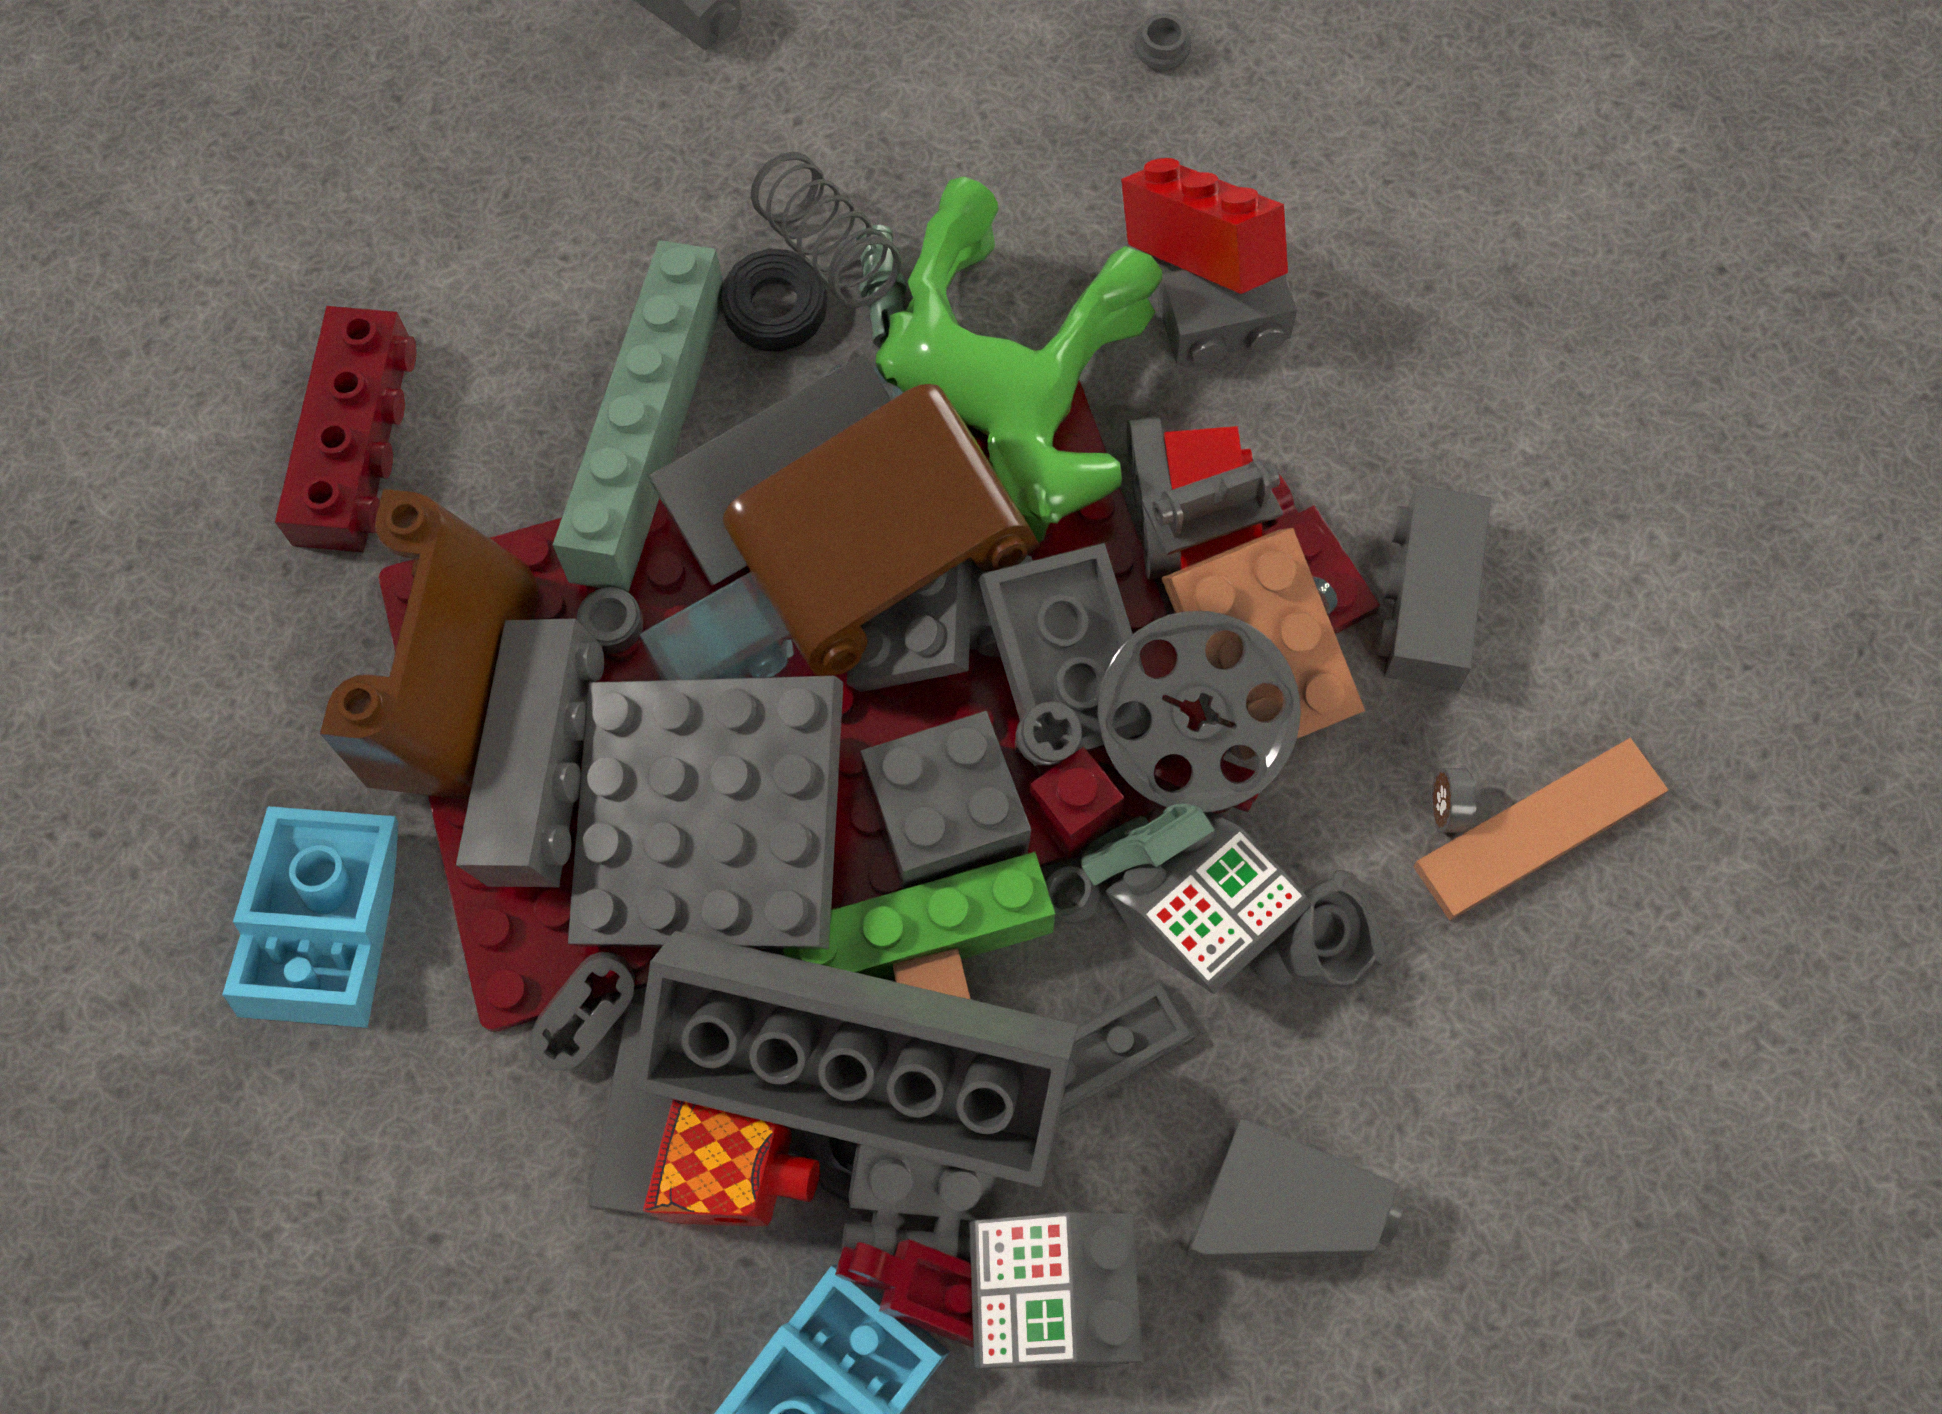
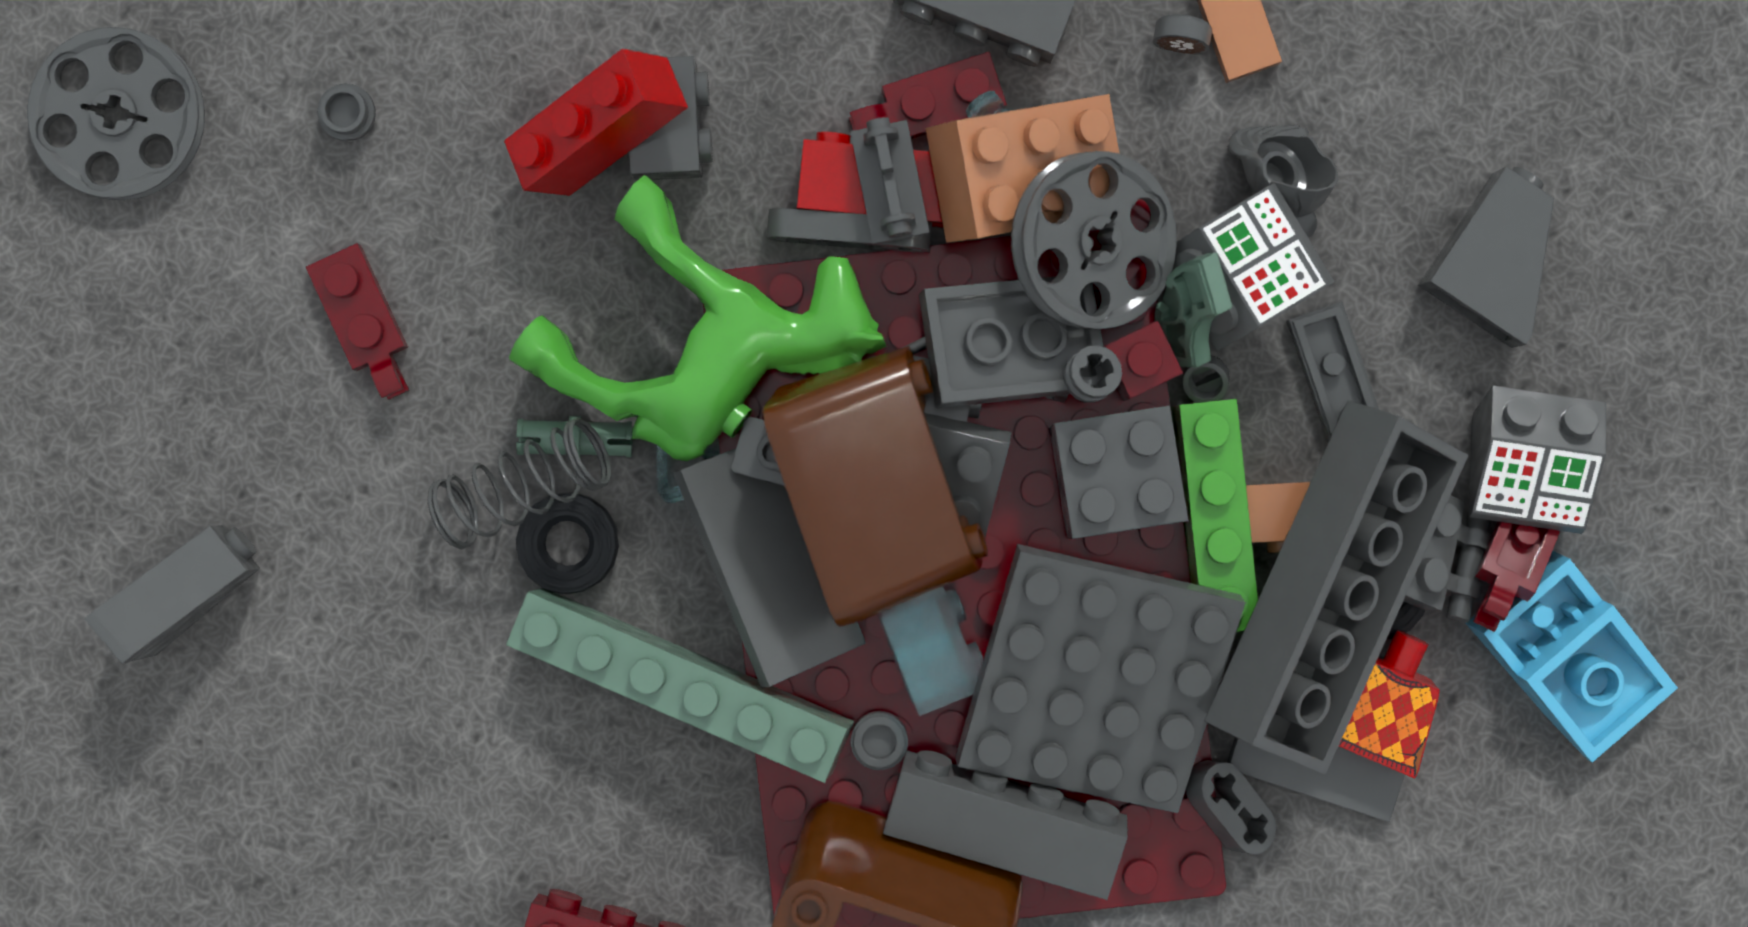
camera: 80 degrees left, 20 degrees up
(964, 89) = (361, 317): none -> dark red plate

